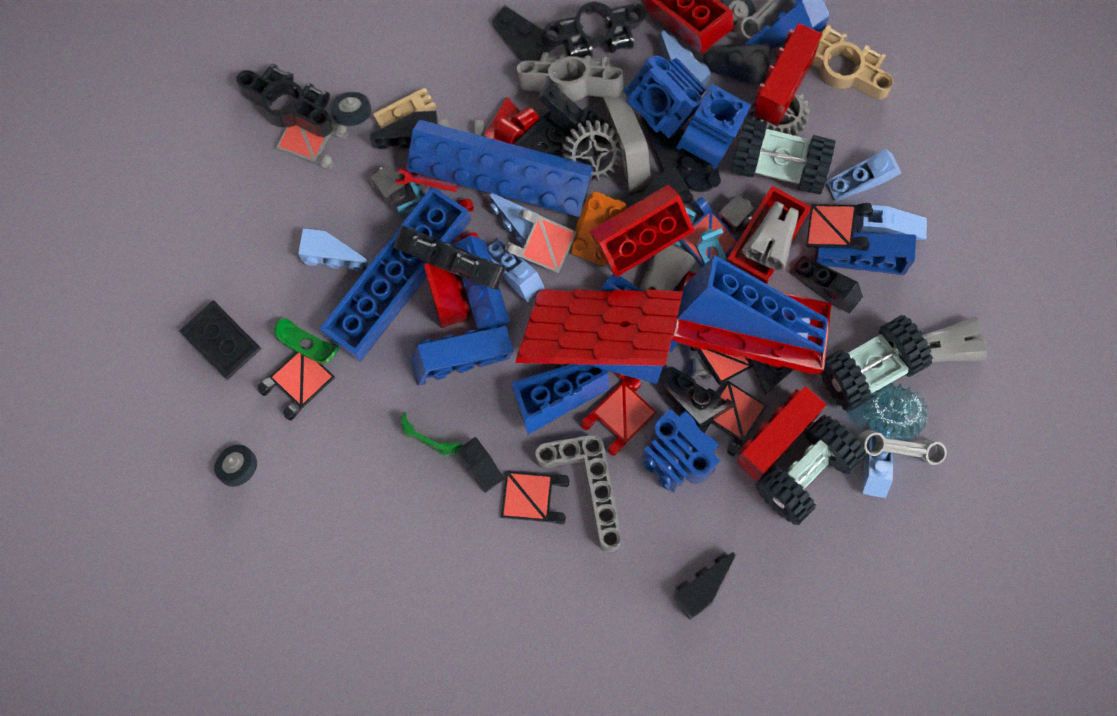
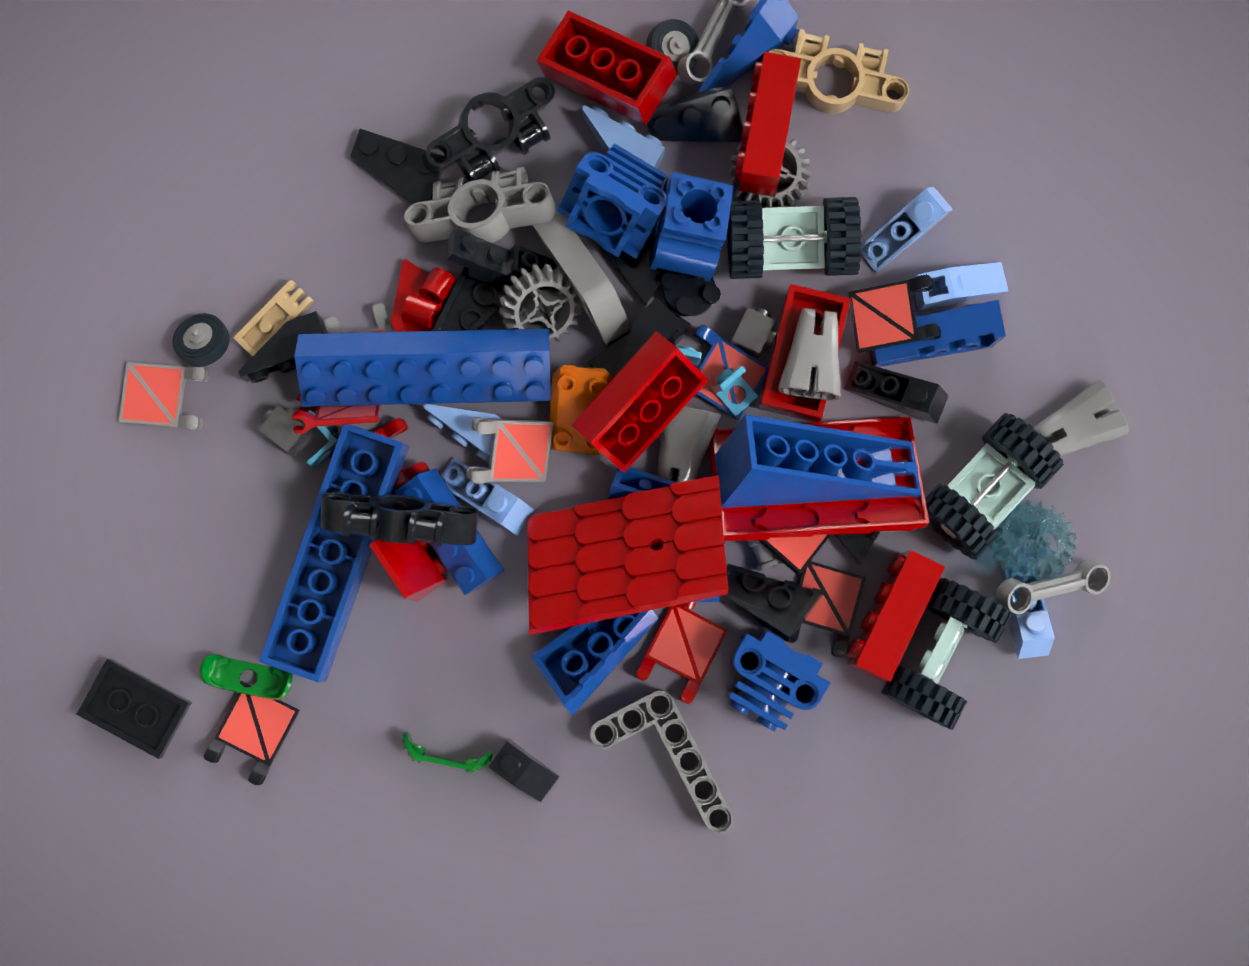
camera: 15 degrees left, 10 degrees up
(235, 465) = (210, 869): black wheel -> none
(276, 83) = (90, 332): black piece -> none
(323, 248) = (227, 544): light blue slope -> none
(460, 353) = (453, 632): blue wedge -> none
(529, 497) = (598, 790): coral flag -> none
(700, 593) = (853, 846): black slope -> none

